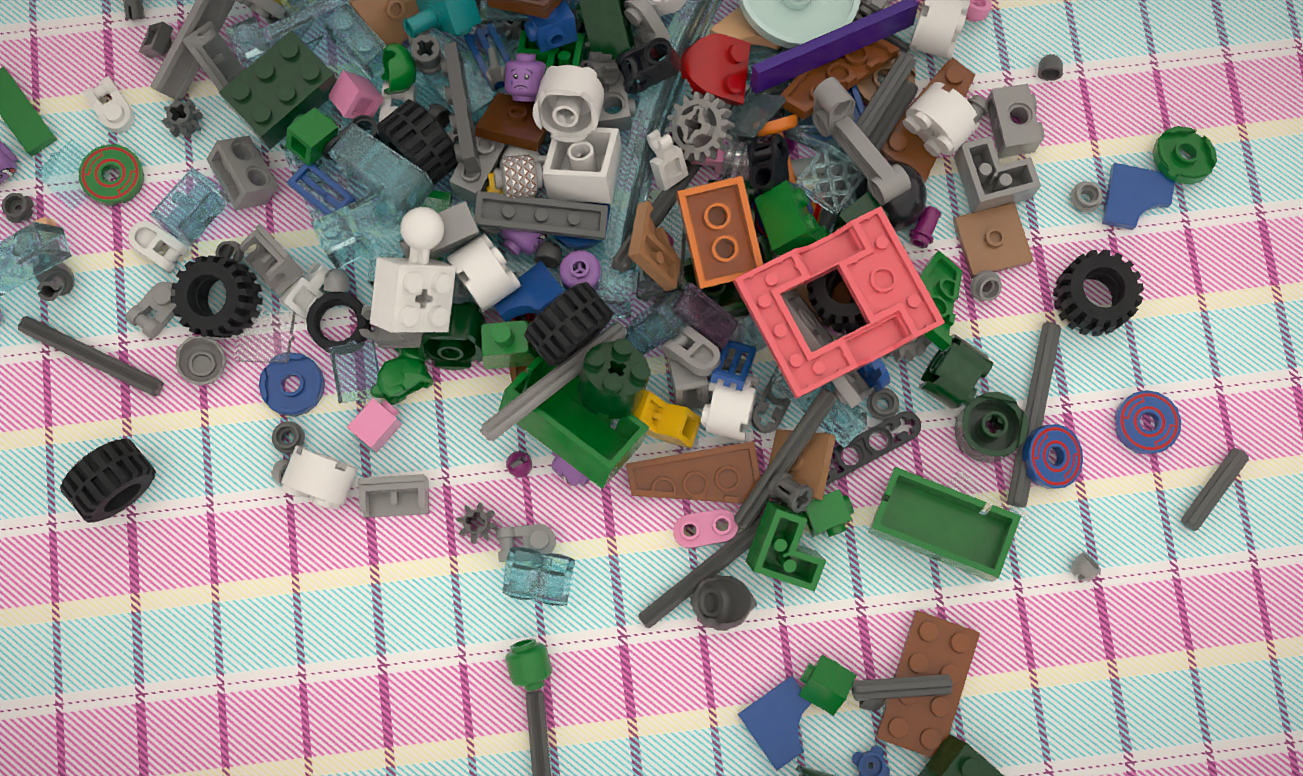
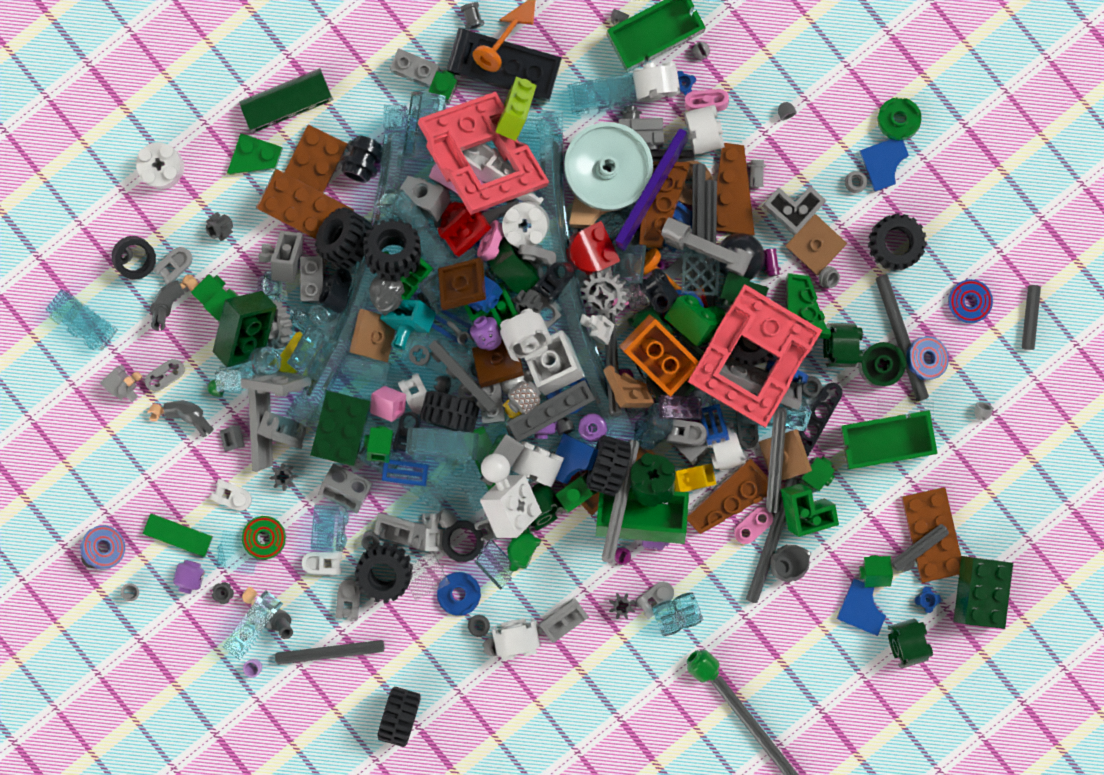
camera: 30 degrees left, 10 degrees up
(200, 360) = (399, 615): light grey hair -> none
(375, 424) = (525, 586): bright pink brick -> none
(399, 68) = (406, 373): green hair -> none
(790, 491) = (791, 478): dark grey bush -> none
(941, 120) = (743, 196): white brick -> none
(1009, 137) = (790, 173): light grey brick -> none

